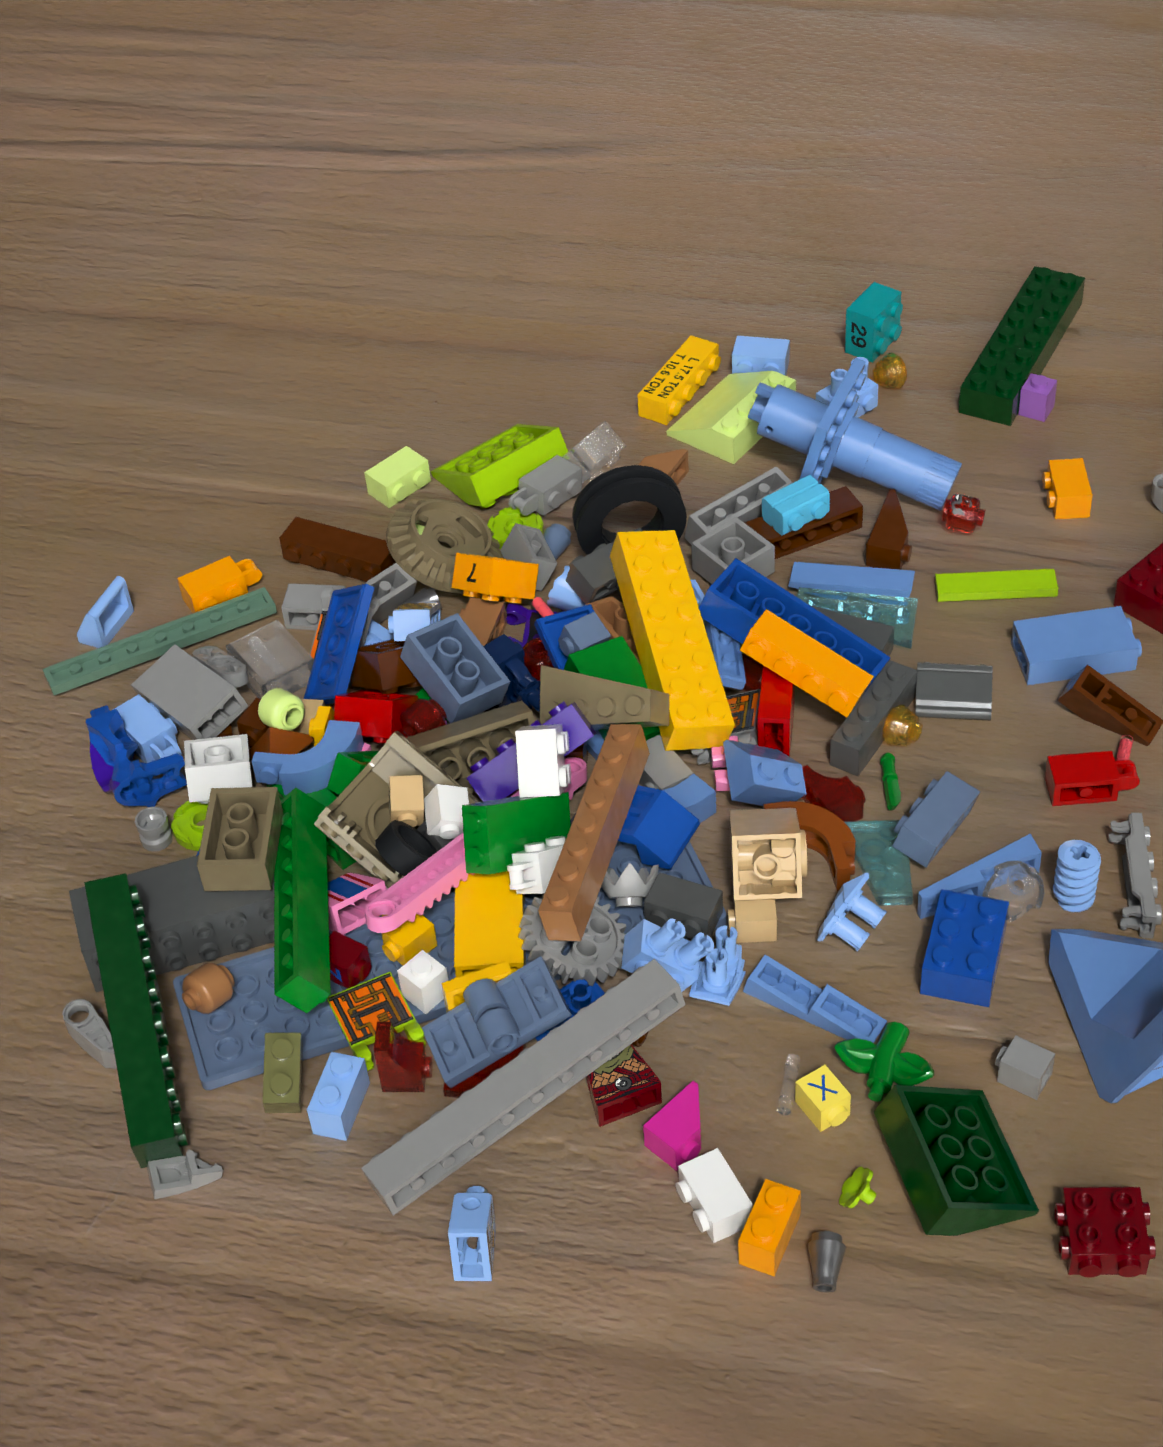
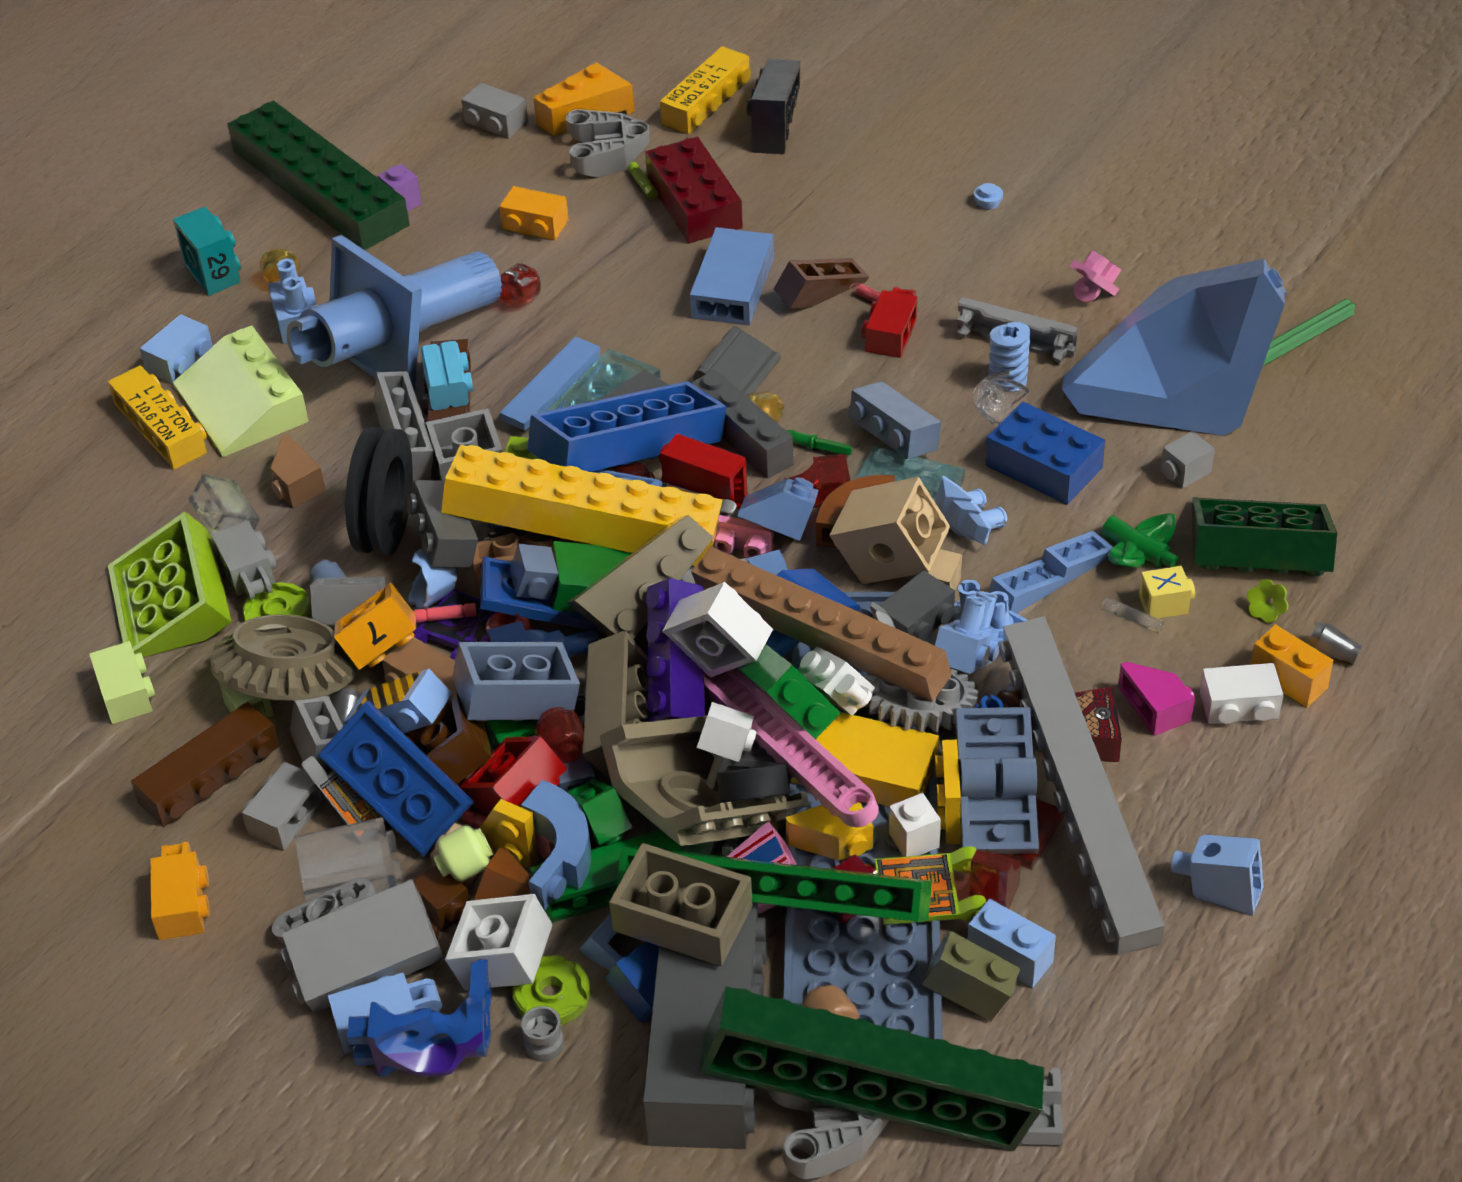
camera: 70 degrees left, 0 degrees up
(106, 615) = (147, 1013): light blue tile -> none
(158, 640) = (229, 975): sand green plate -> none
(406, 799) = (688, 764): tan brick -> none
(806, 663) = (689, 419): light orange brick -> none
(889, 538) = (507, 340): reddish brown slope -> none
(975, 876) = (970, 421): medium blue slope -> none
(996, 585) = (617, 300): lime tile -> none
(1104, 1231) = (1367, 470): dark red brick -> none

